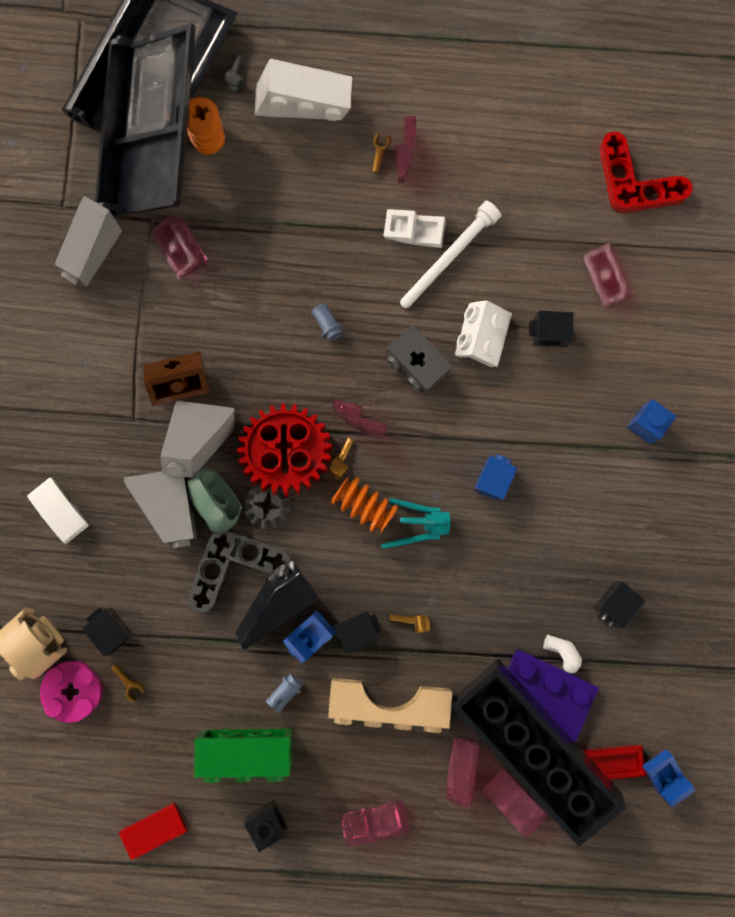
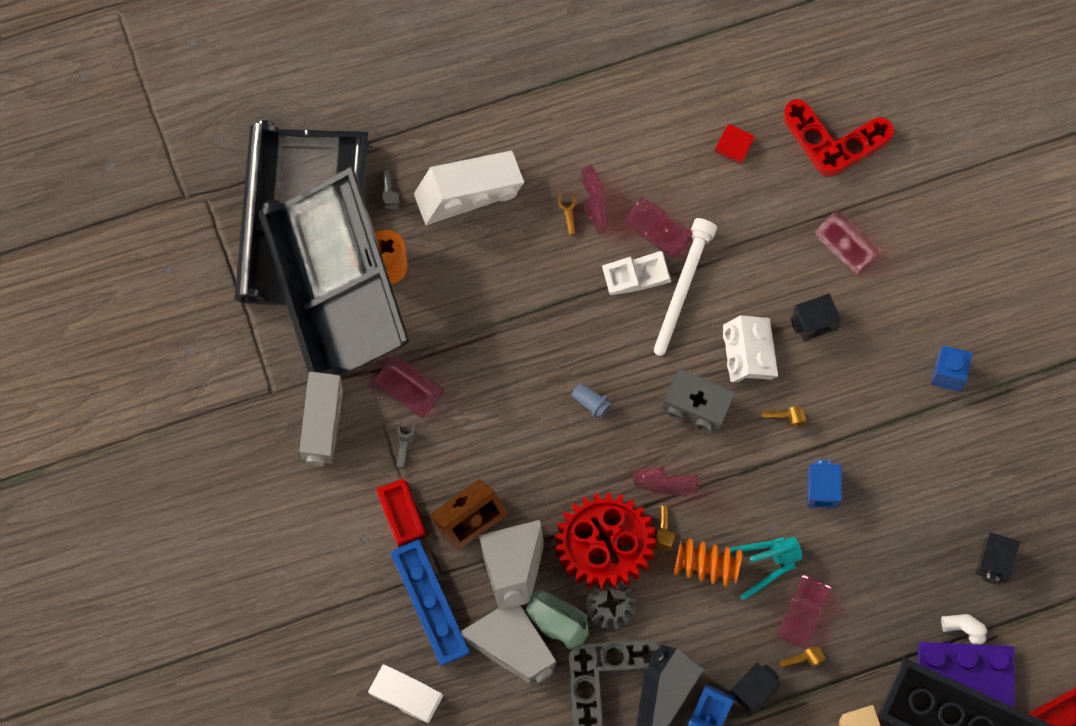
camera: 15 degrees left, 10 degrees down
(112, 440) = (429, 603): none -> blue plate
(124, 353) = (401, 512): none -> red tile
(154, 292) = (403, 440): none -> dark grey hand
(430, 580) = (804, 611): none -> clear pink slope
(449, 196) = (657, 228): none -> clear pink slope
(497, 408) = (795, 414): none -> pearl gold hand
(548, 150) = (734, 143): none -> red tile

